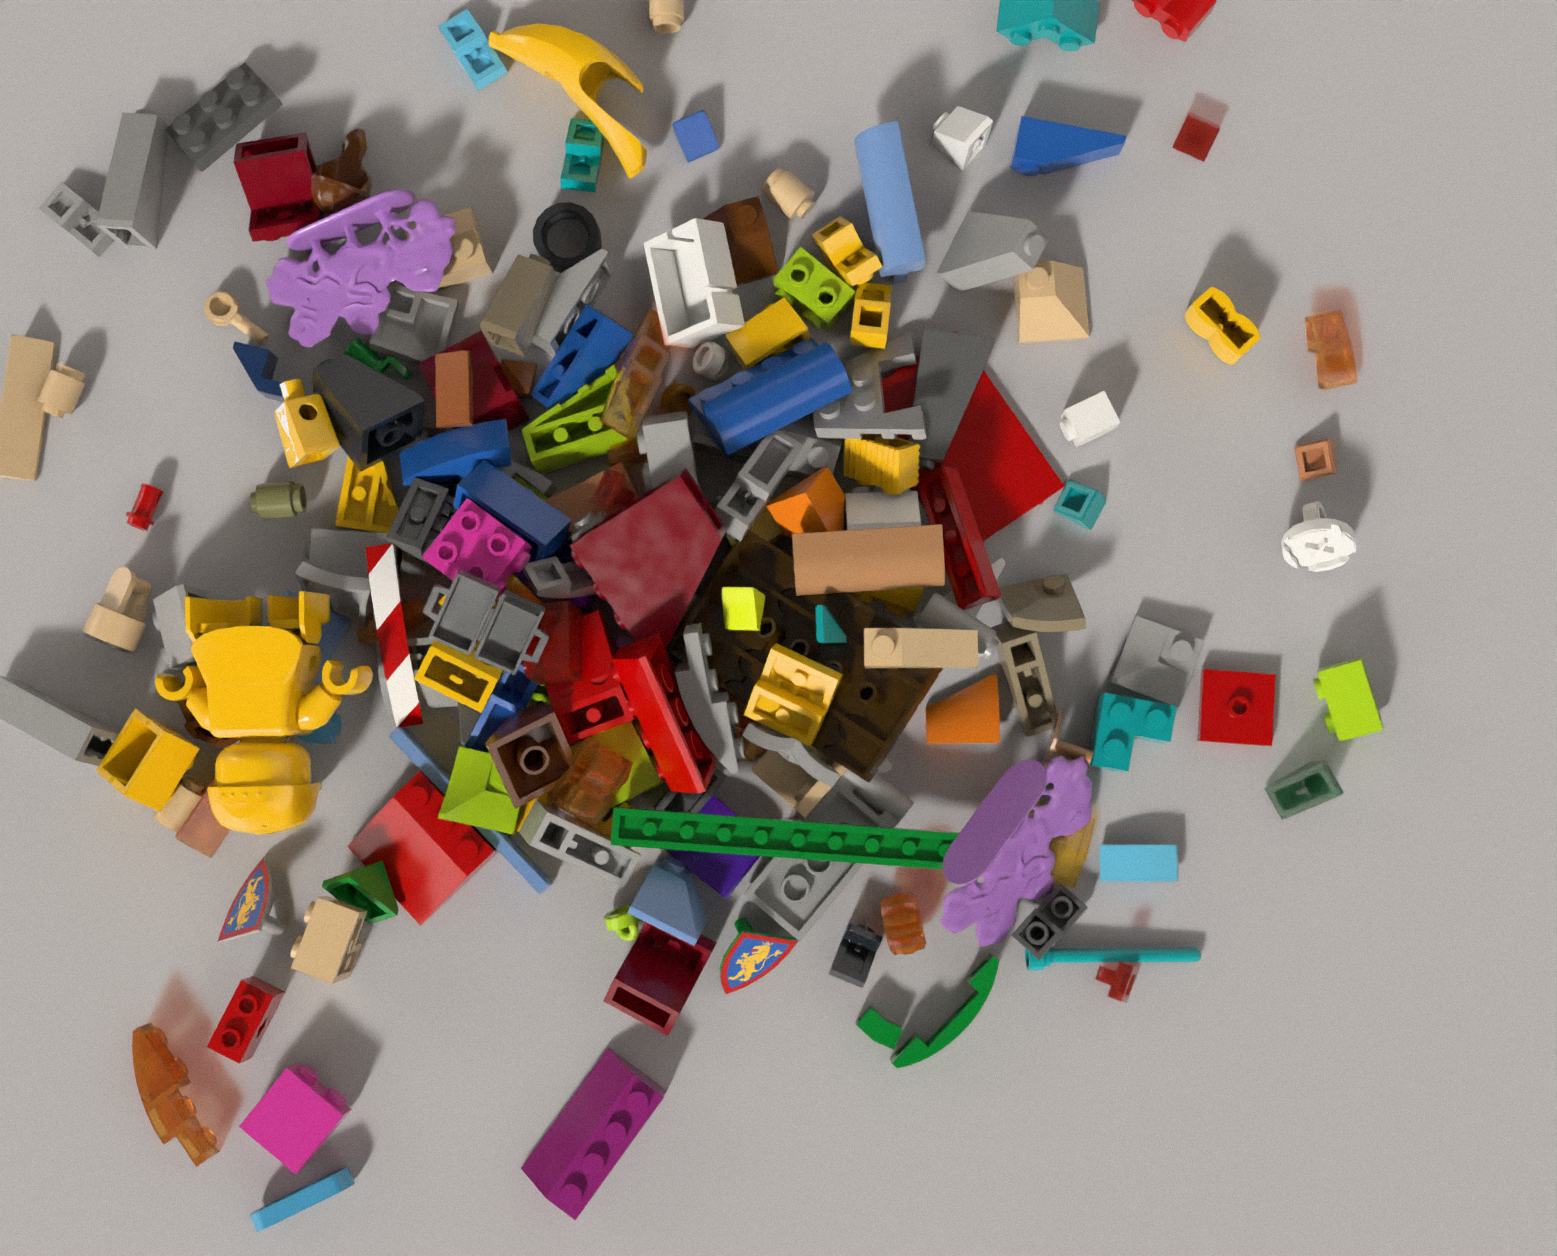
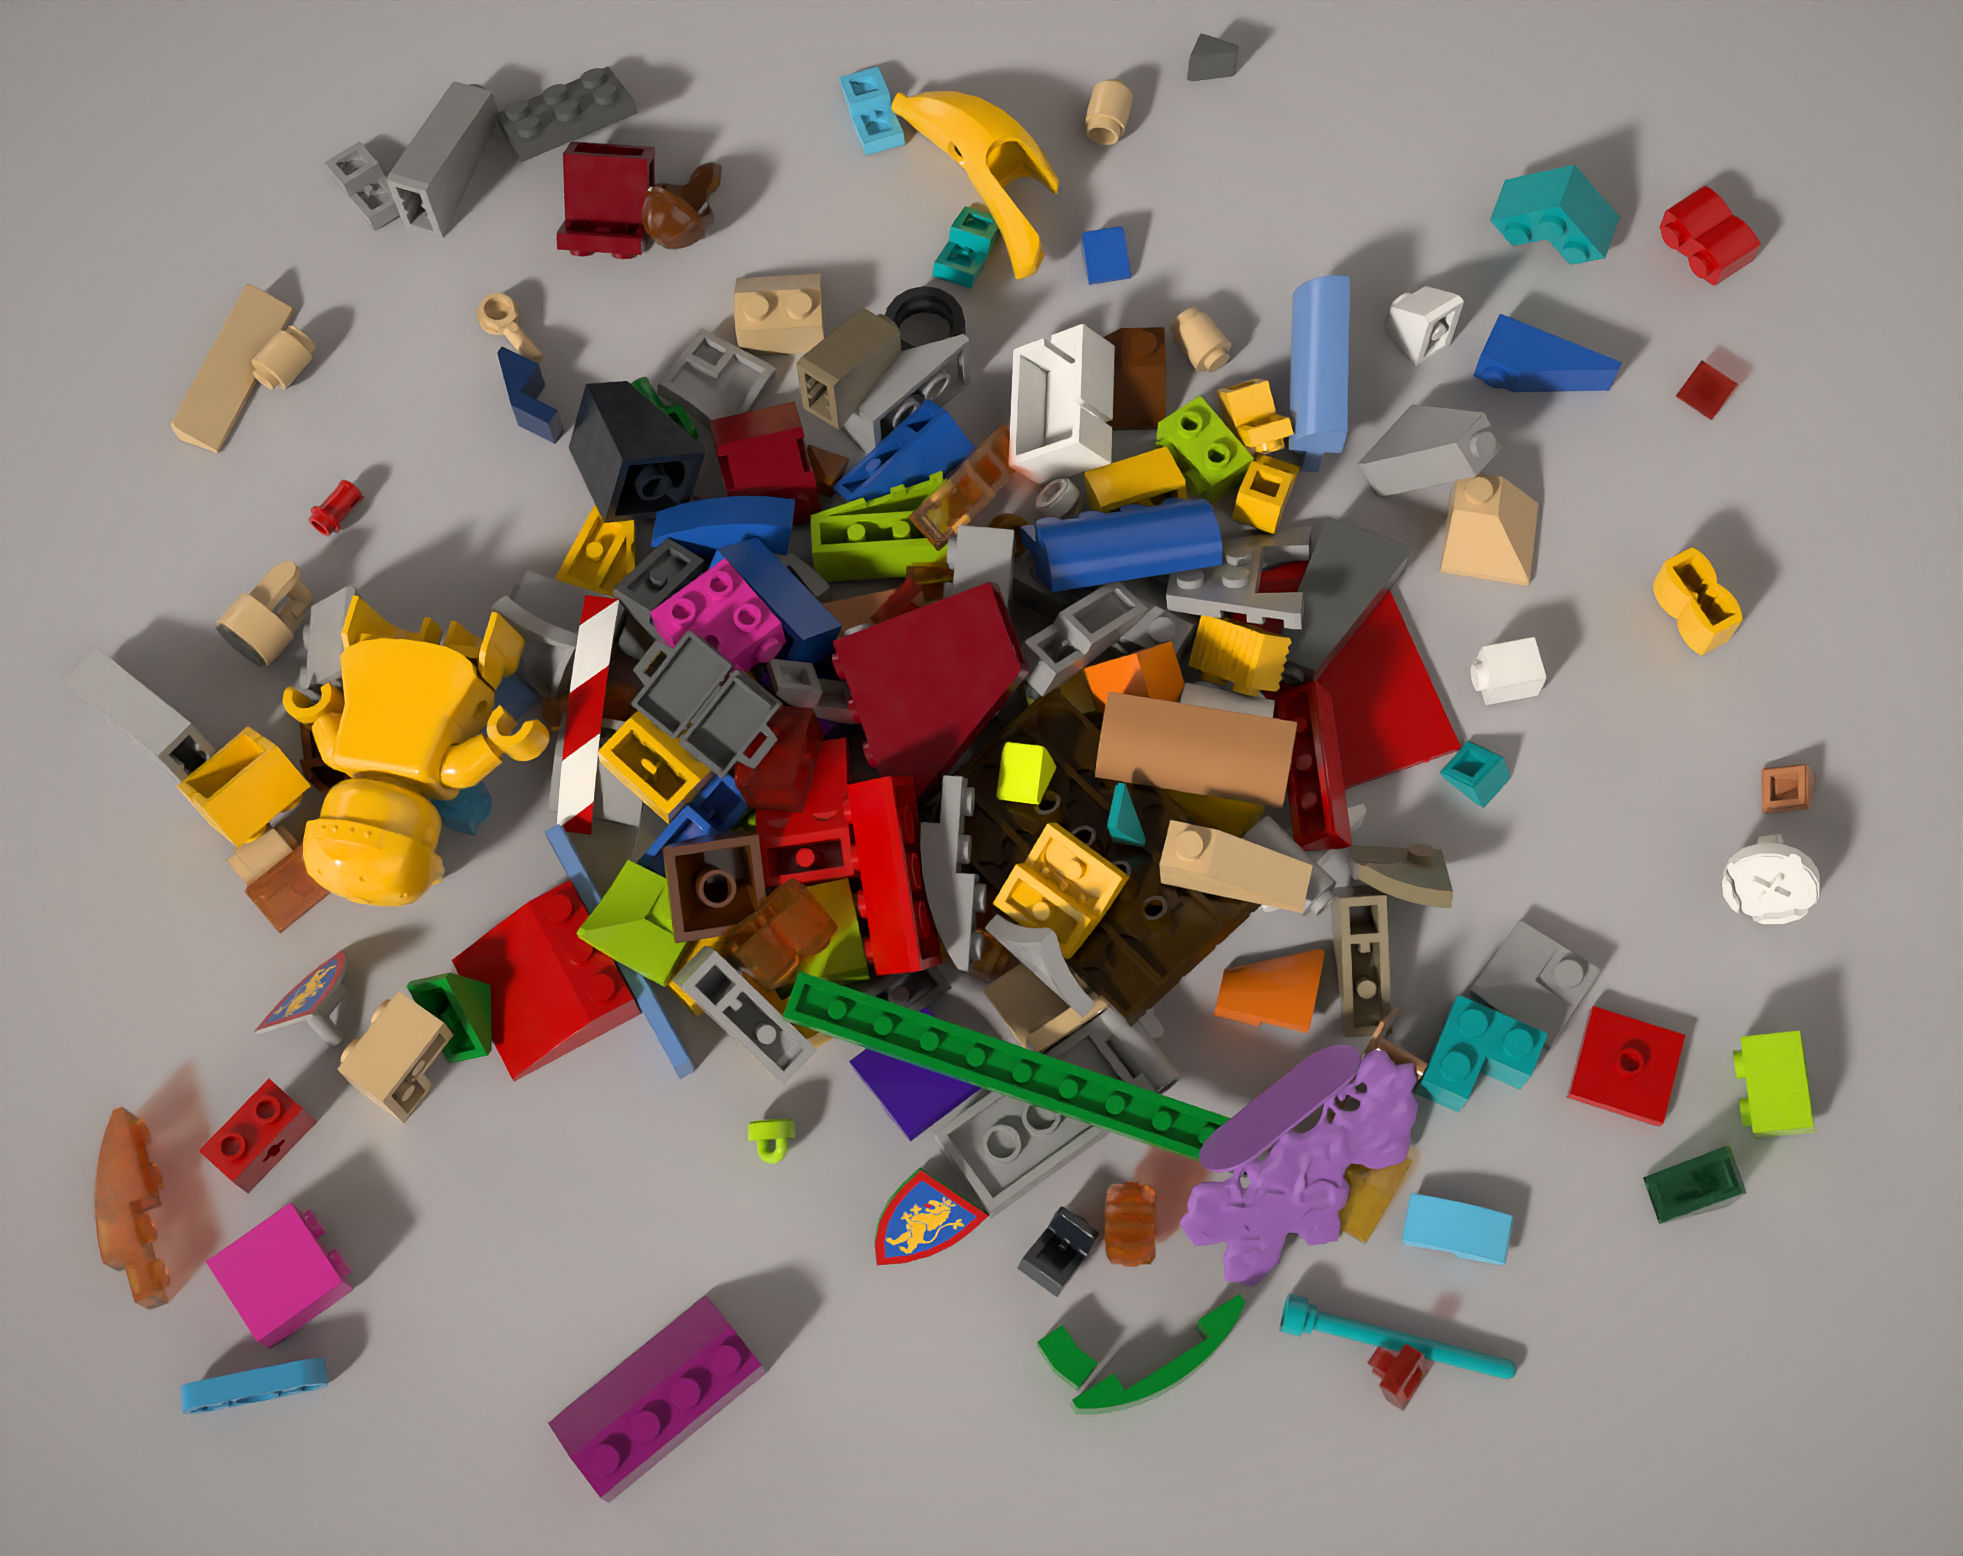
camera: 10 degrees right, 15 degrees down
(278, 500) = (496, 535): olive brick -> none
(304, 426) = (554, 456): yellow torso -> none
(358, 275) = (665, 312): medium lavender plant -> none
(454, 389) = (744, 449): dark orange slope -> none
(658, 977) = (800, 1208): dark red piece -> none
(671, 901) = (839, 1115): medium blue slope -> none
(1049, 921) = (1325, 1274): dark grey slope -> none
(1333, 350) = (1831, 661): clear orange slope -> none

